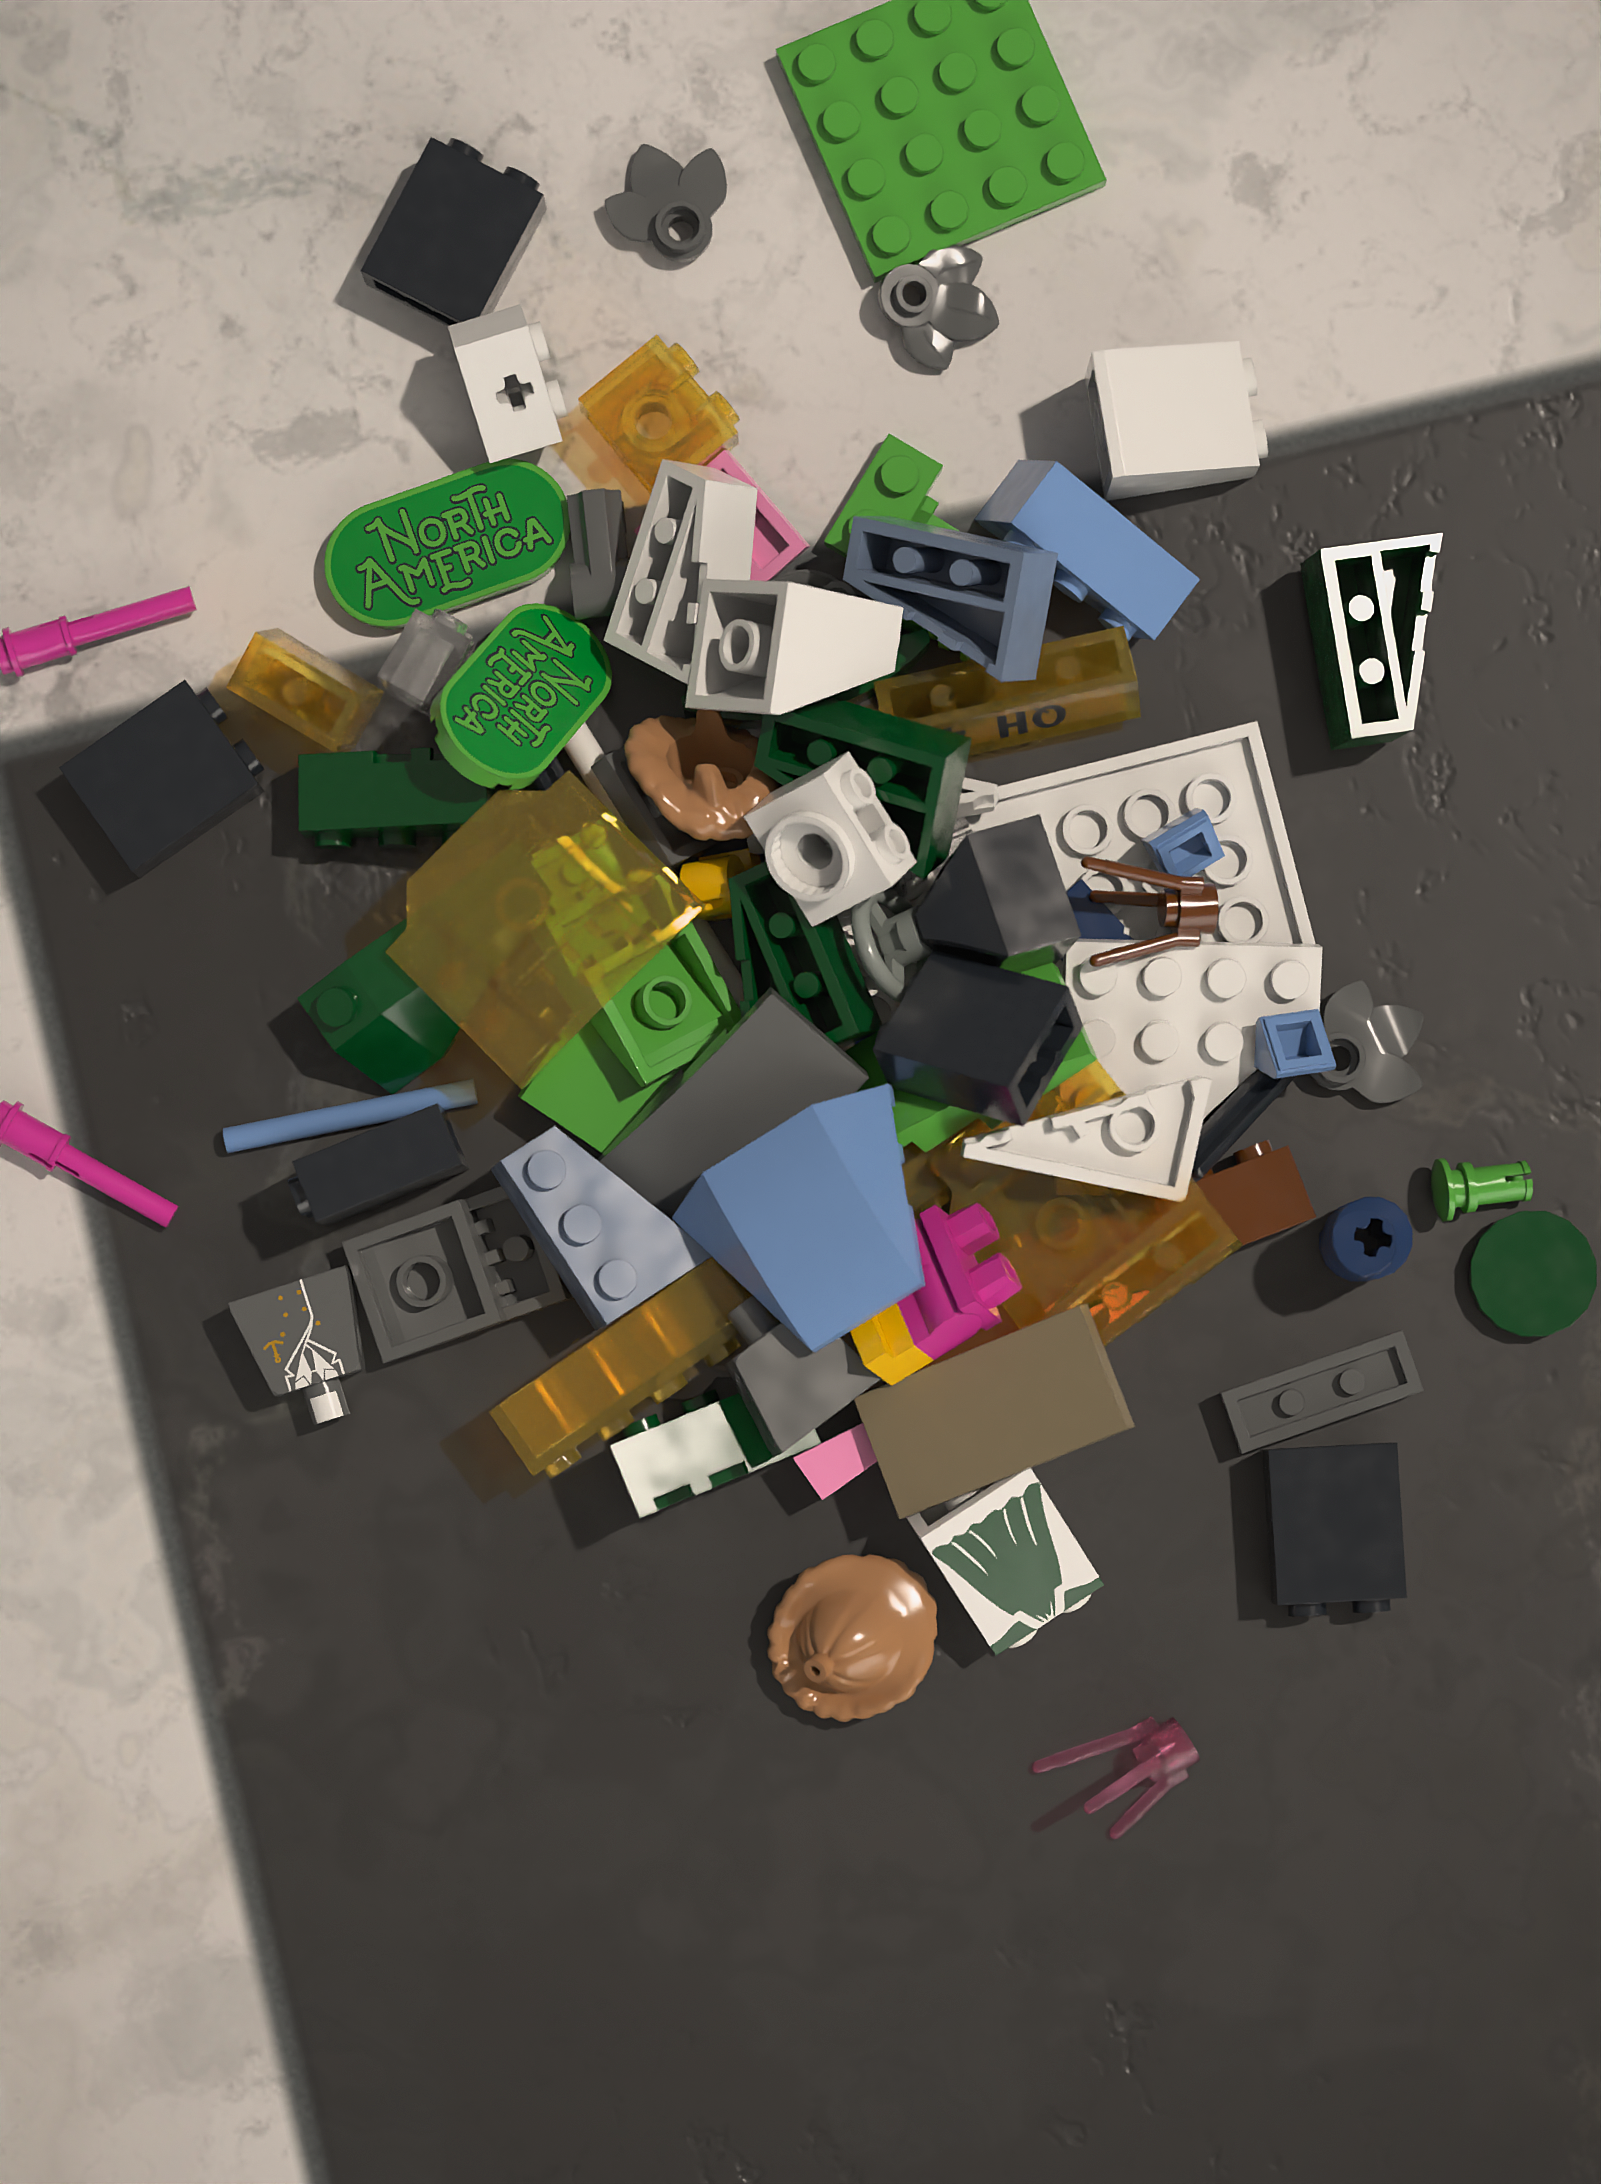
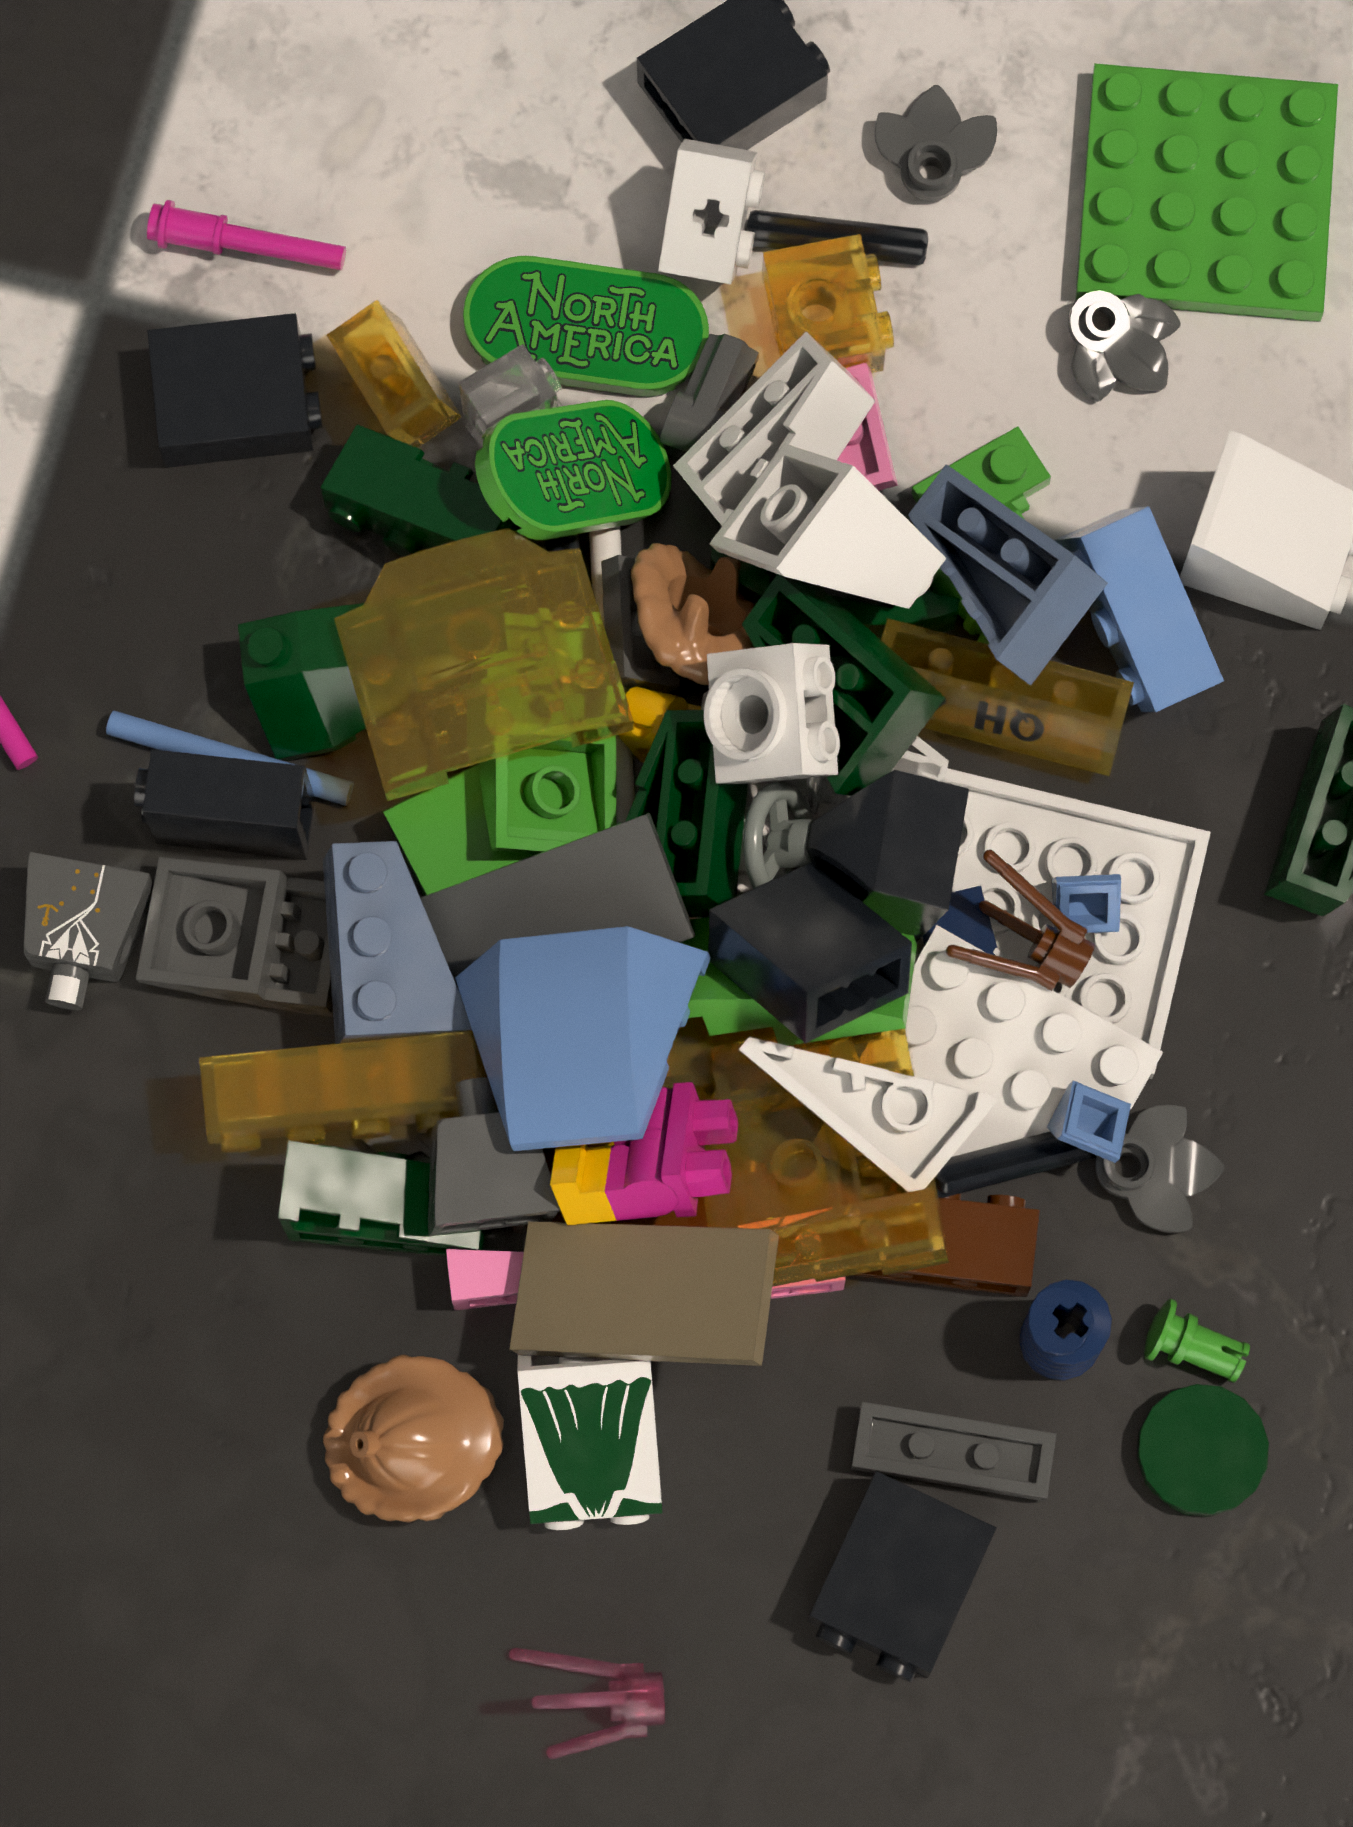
camera: 30 degrees right, 10 degrees down
(622, 340) = (888, 242): none -> black axle

